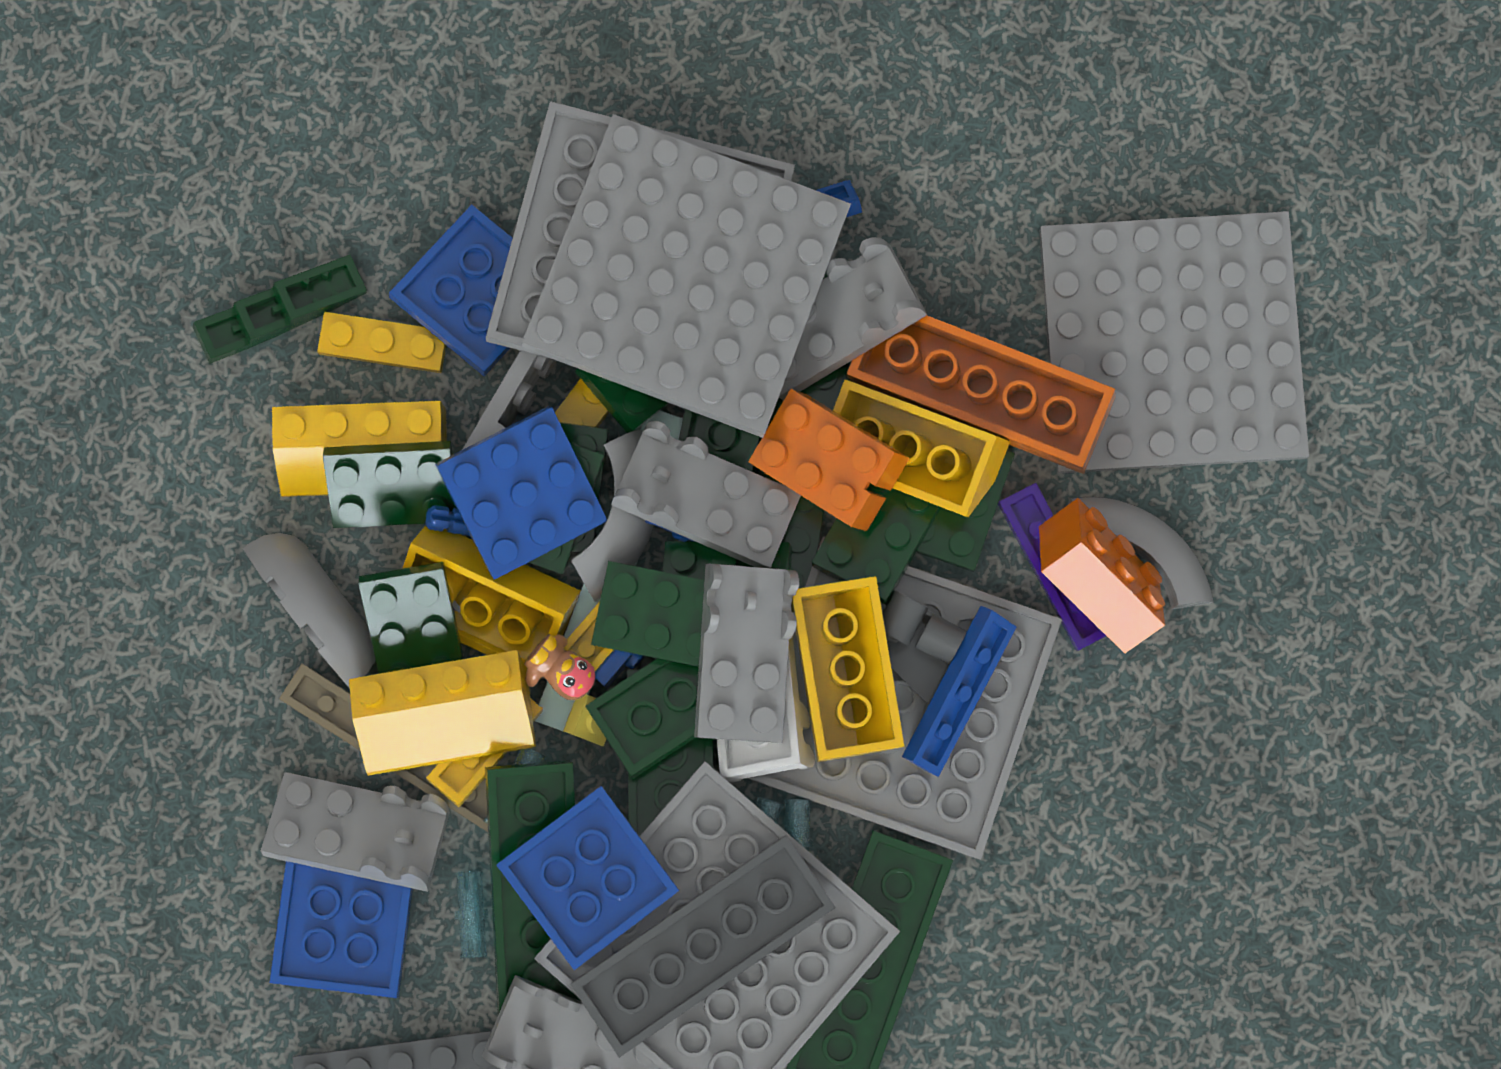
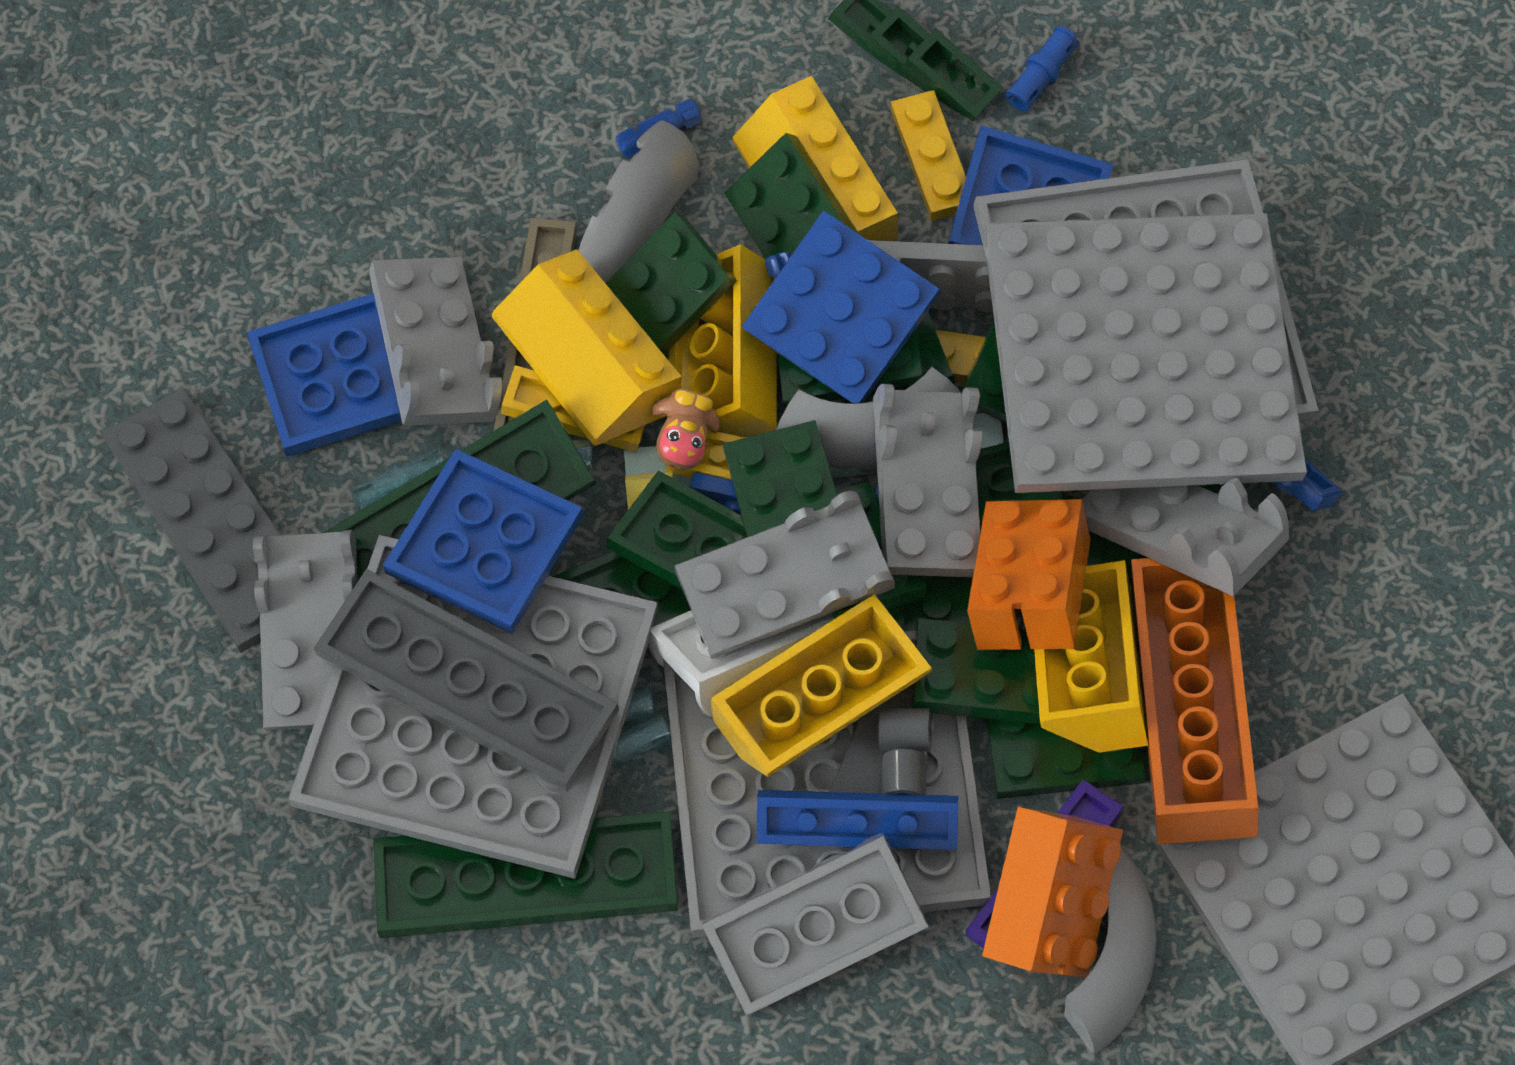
camera: 65 degrees right, 20 degrees down
(241, 524) = (686, 115): none -> blue axle
(349, 214) = (1042, 68): none -> blue pin
(1027, 762) = (815, 924): none -> light grey hinge

